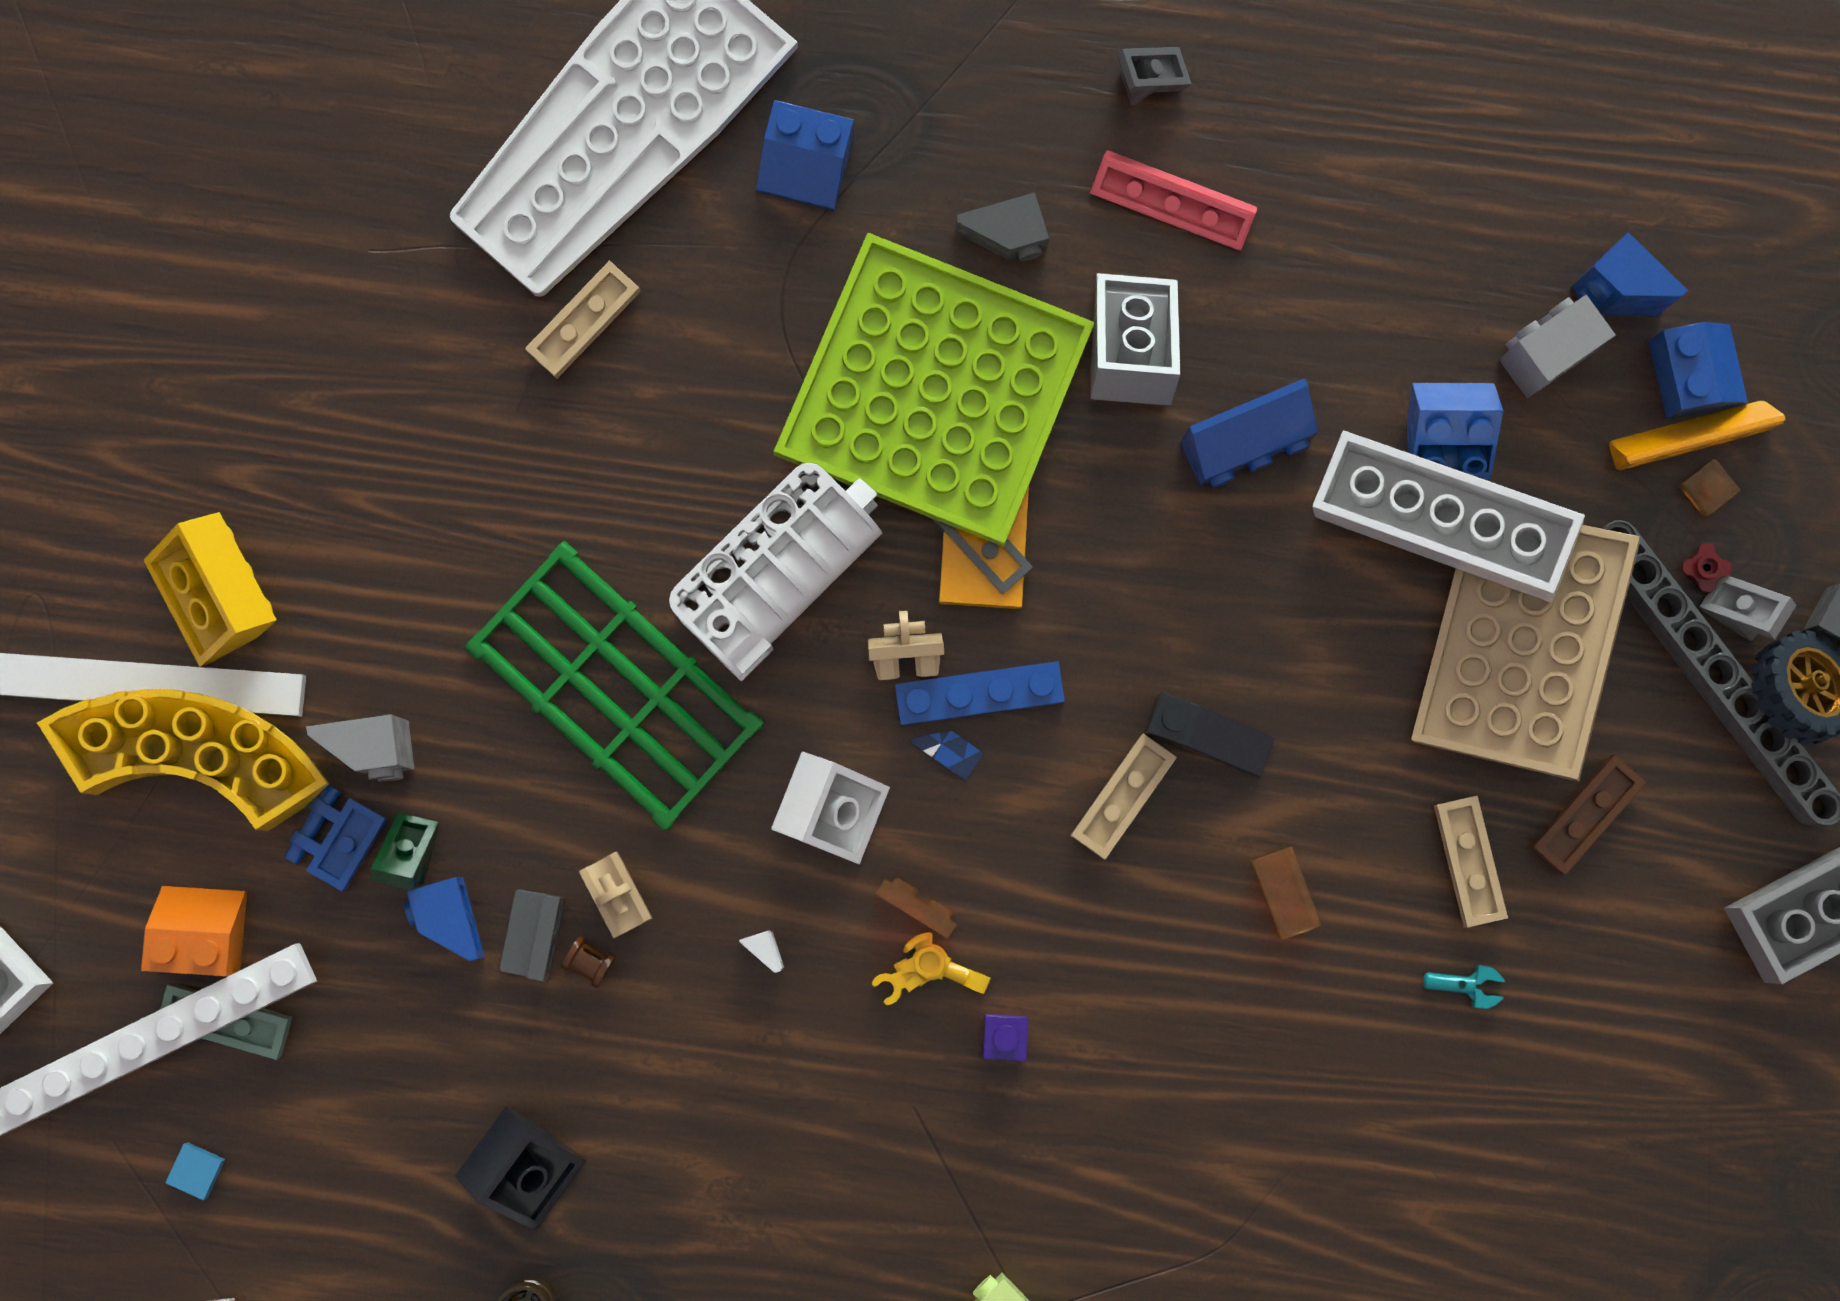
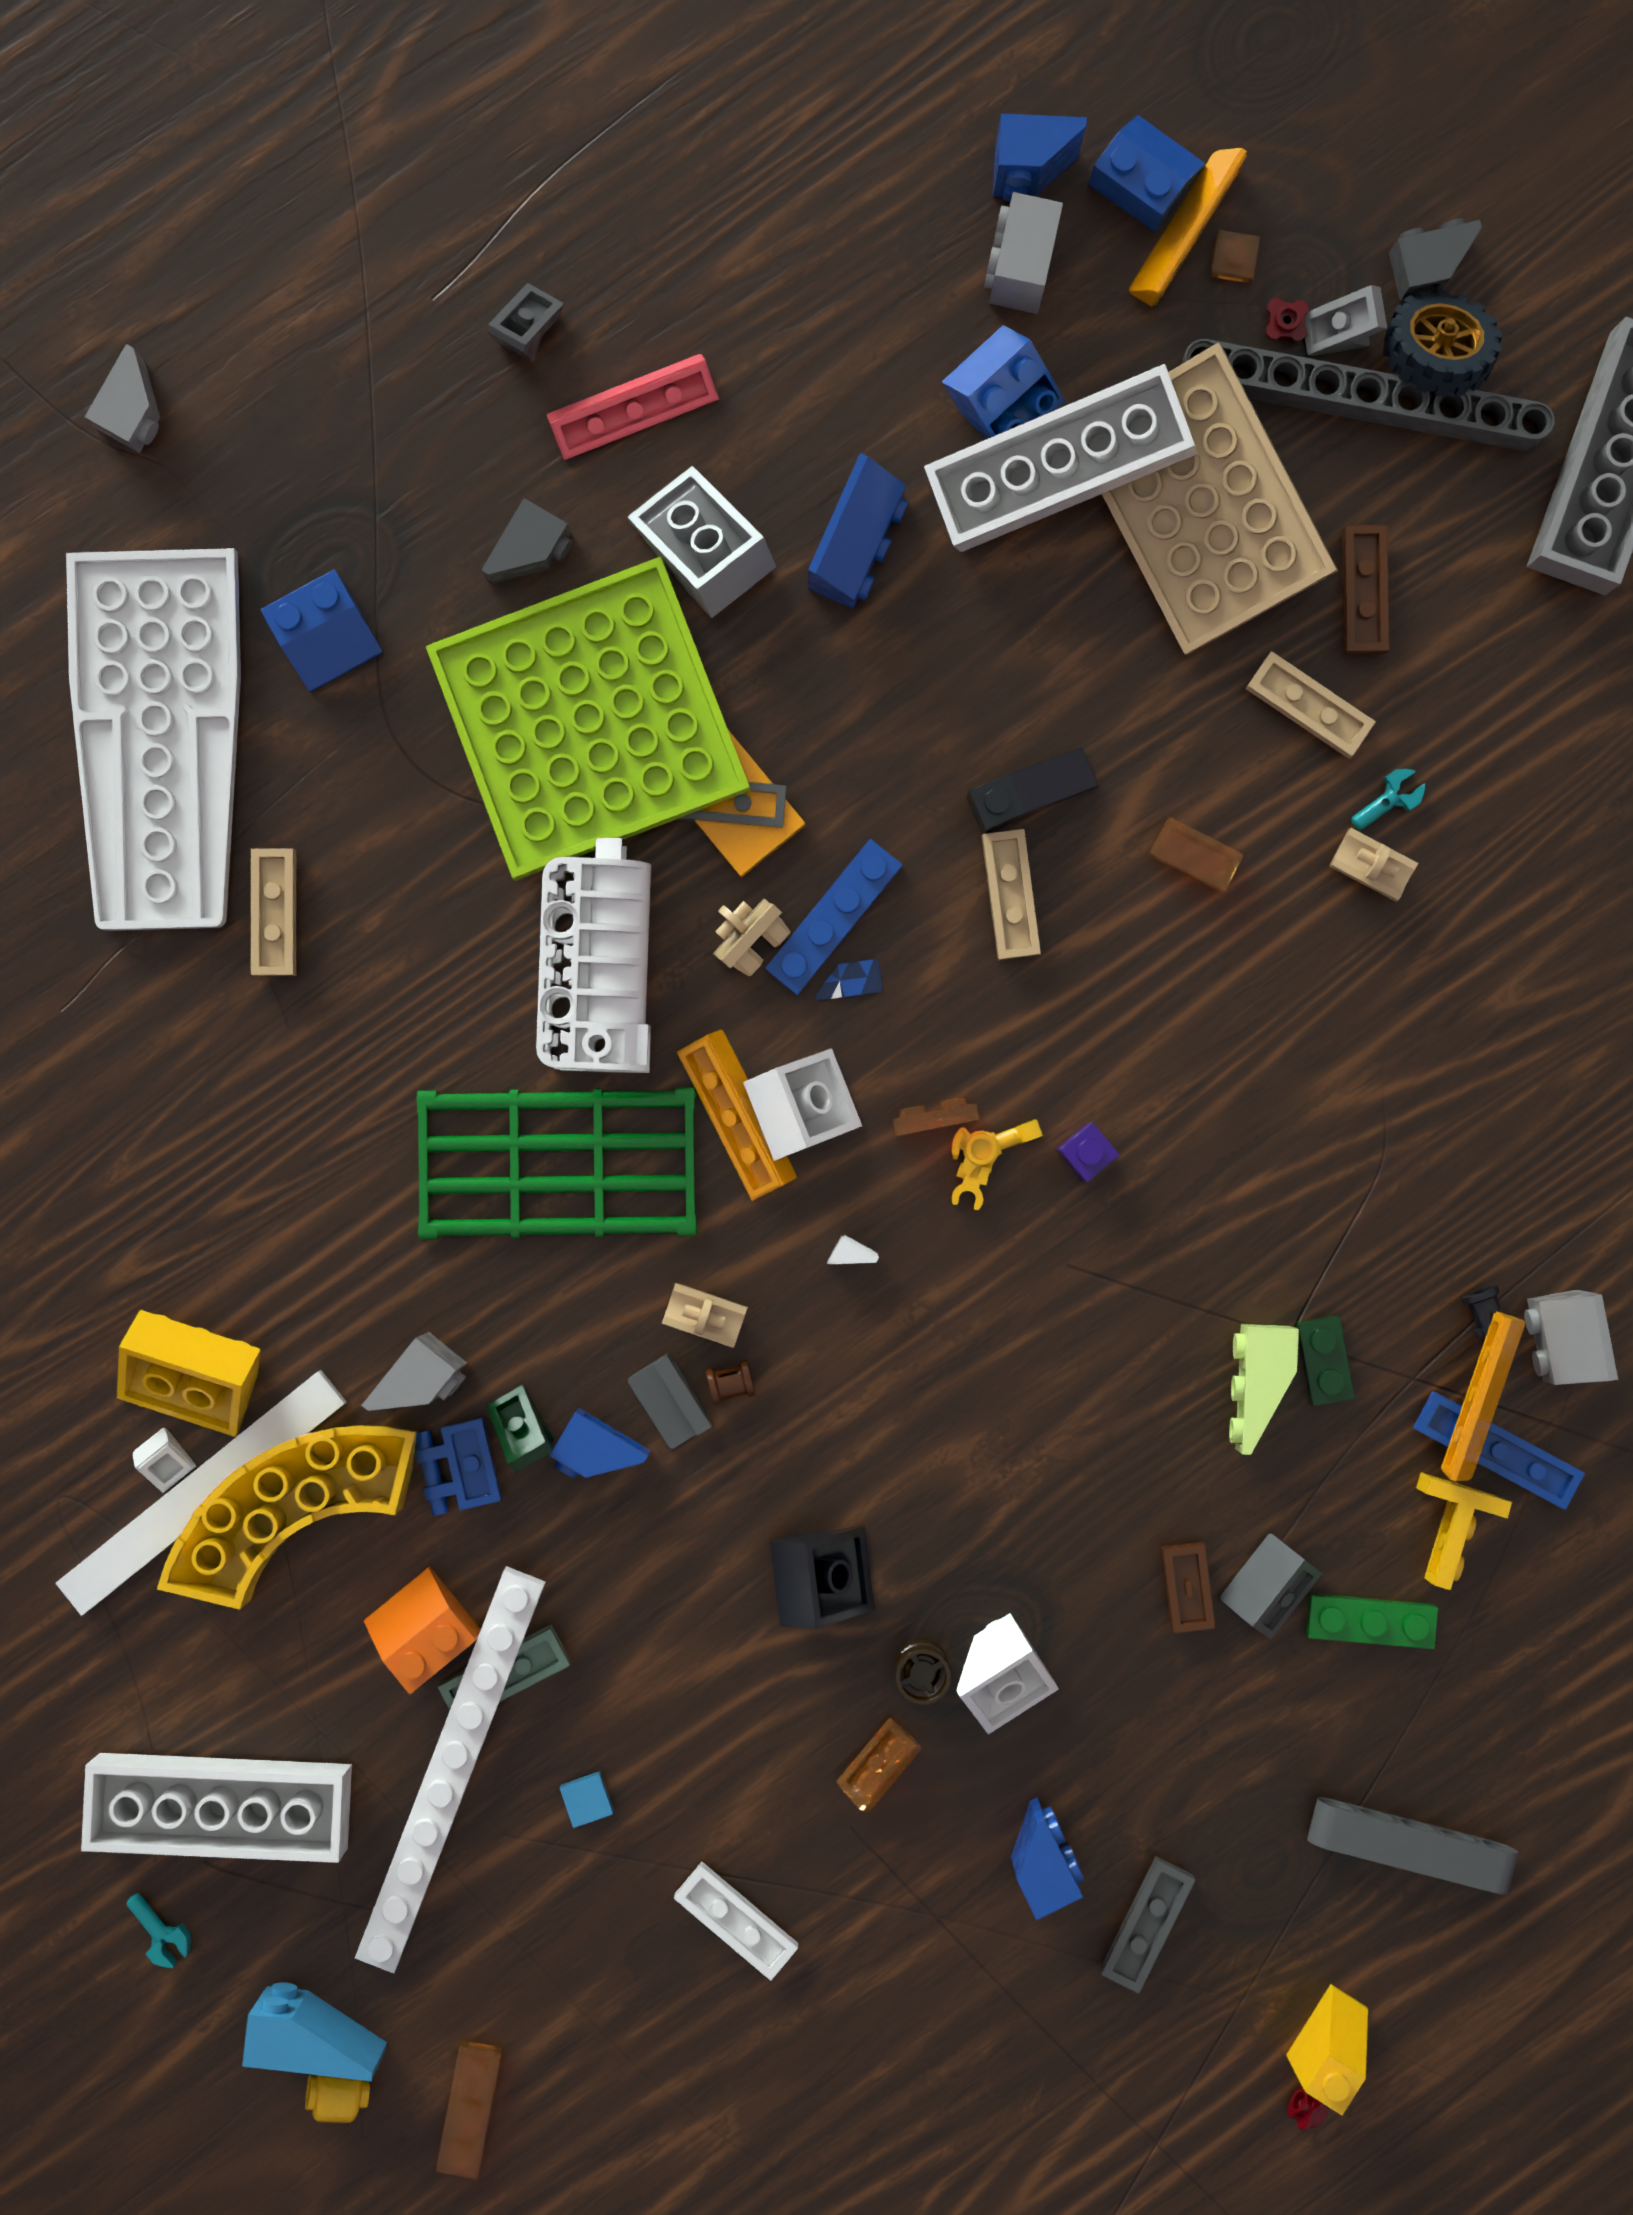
camera: 40 degrees left, 5 degrees up
(132, 635) = (162, 1460): none -> white slope
(784, 736) = (721, 1089): none -> light orange slope
(1410, 1021) = (1373, 864): none -> tan hips

